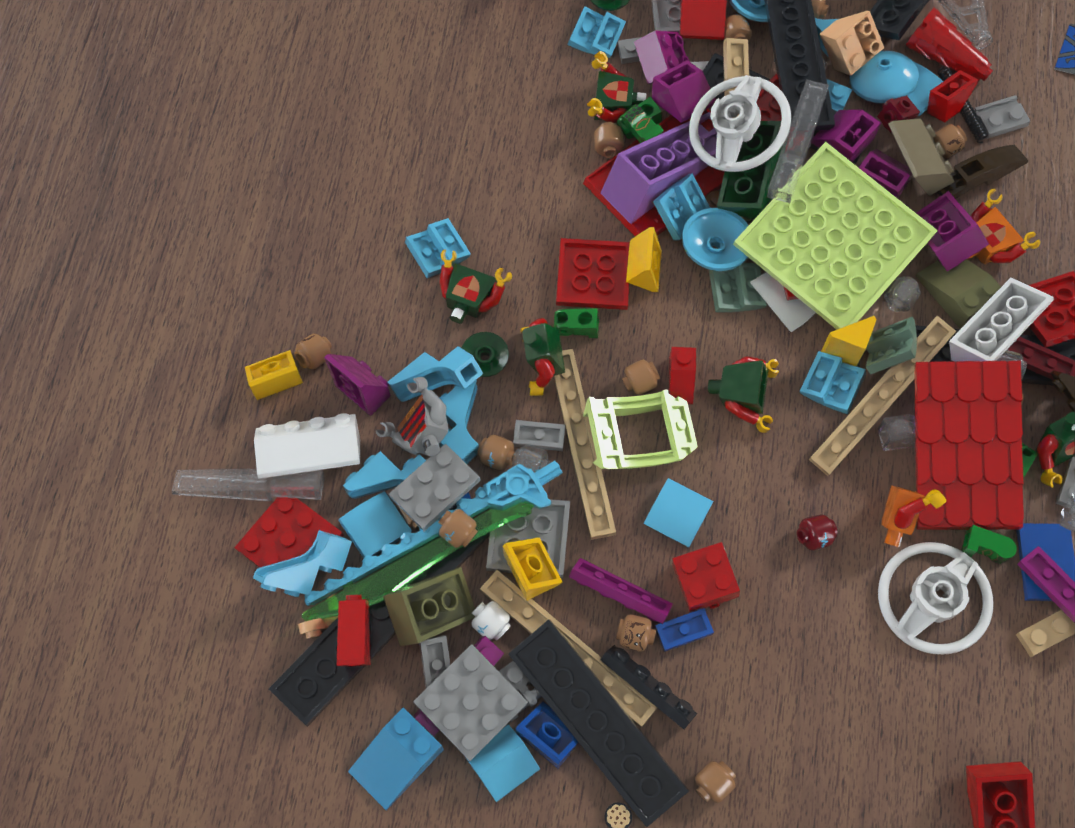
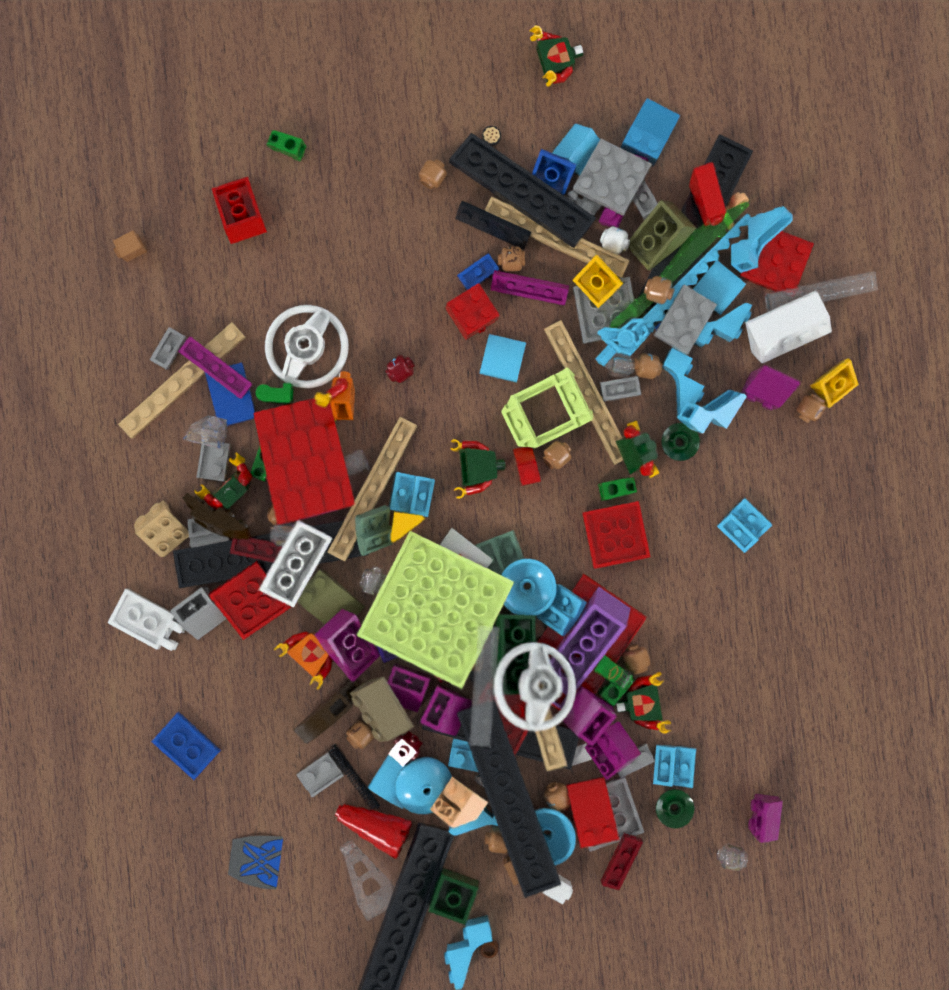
camera: 160 degrees right, 20 degrees up
(423, 425) = (709, 365): light grey torso -> none
(469, 290) = (709, 491): torso -> none
(644, 260) = (578, 553): yellow slope -> none
(951, 95) = (365, 777): red slope -> none

